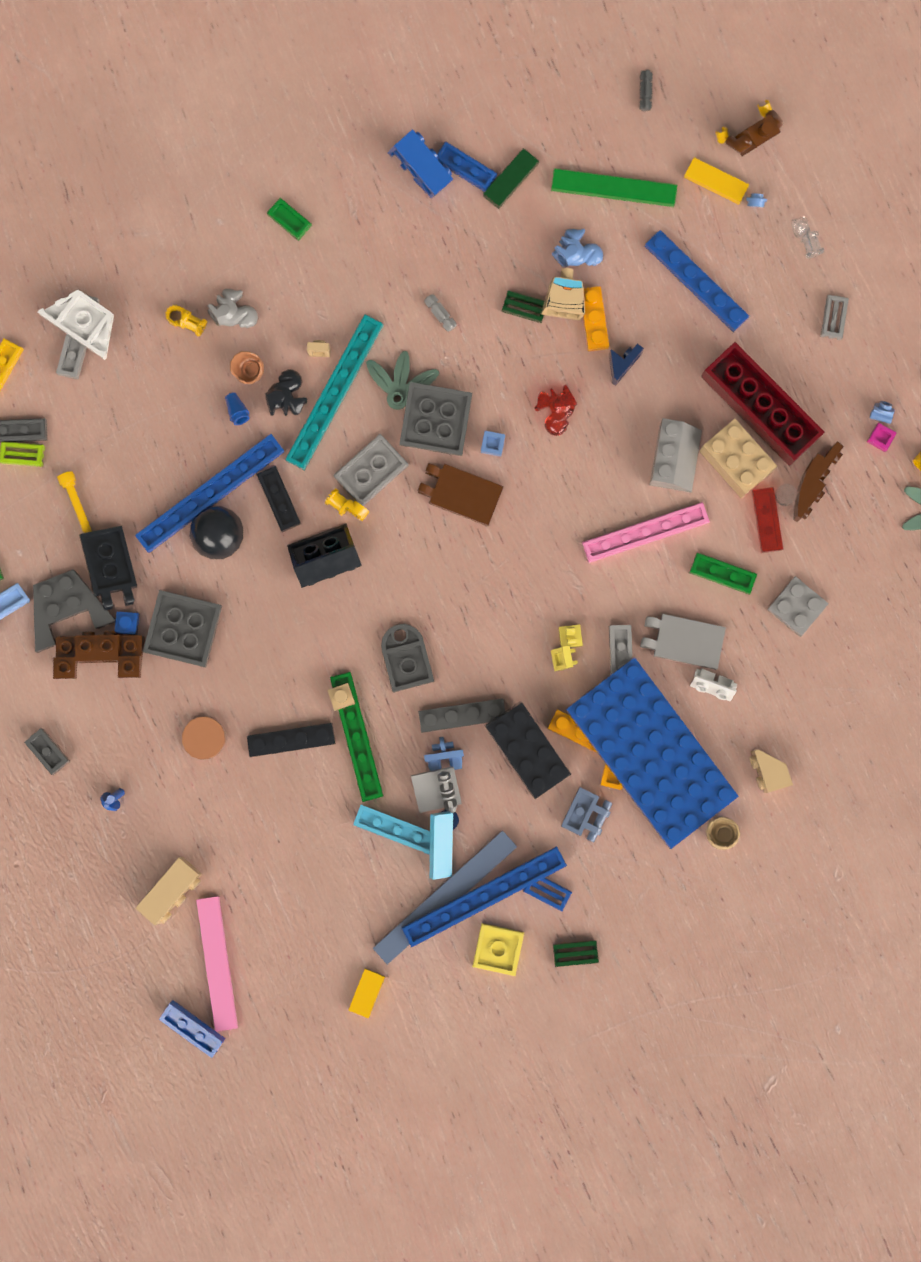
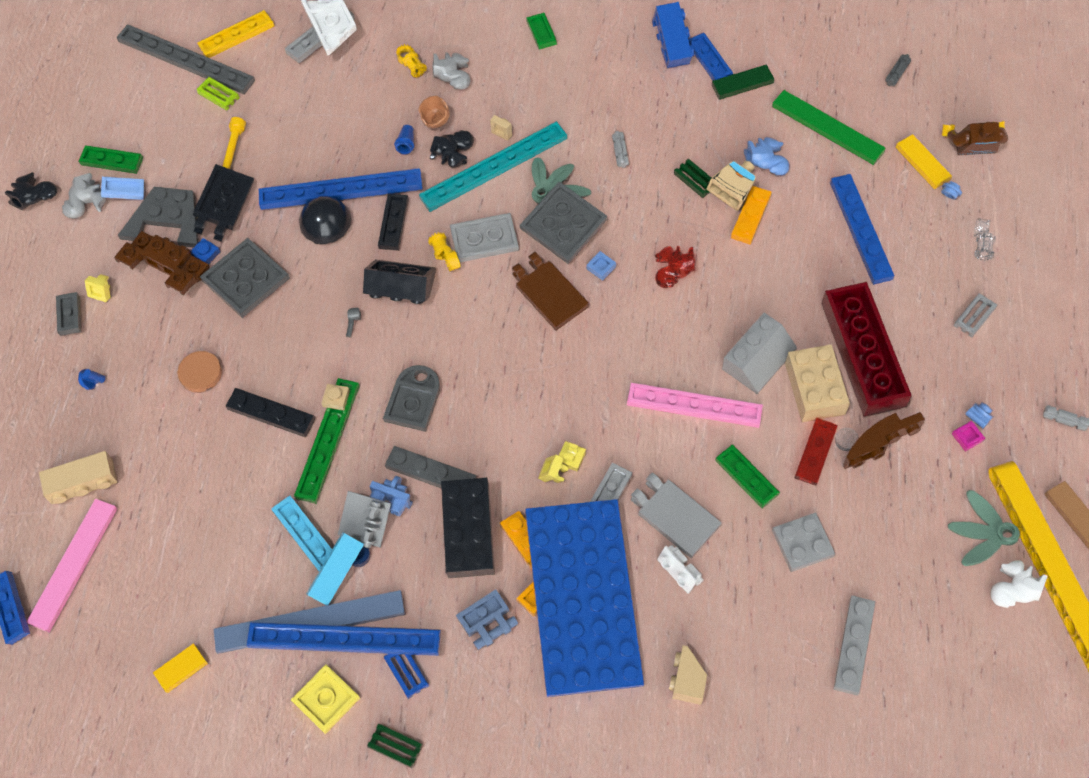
camera: 30 degrees right, 20 degrees down
(56, 712) = (98, 287): none -> light yellow tile
(304, 610) = (353, 314): none -> dark grey hand
(621, 366) = (753, 260): dark blue slope -> none
(723, 833) = (606, 709): tan hair -> none
(880, 671) = (854, 645): none -> light grey plate

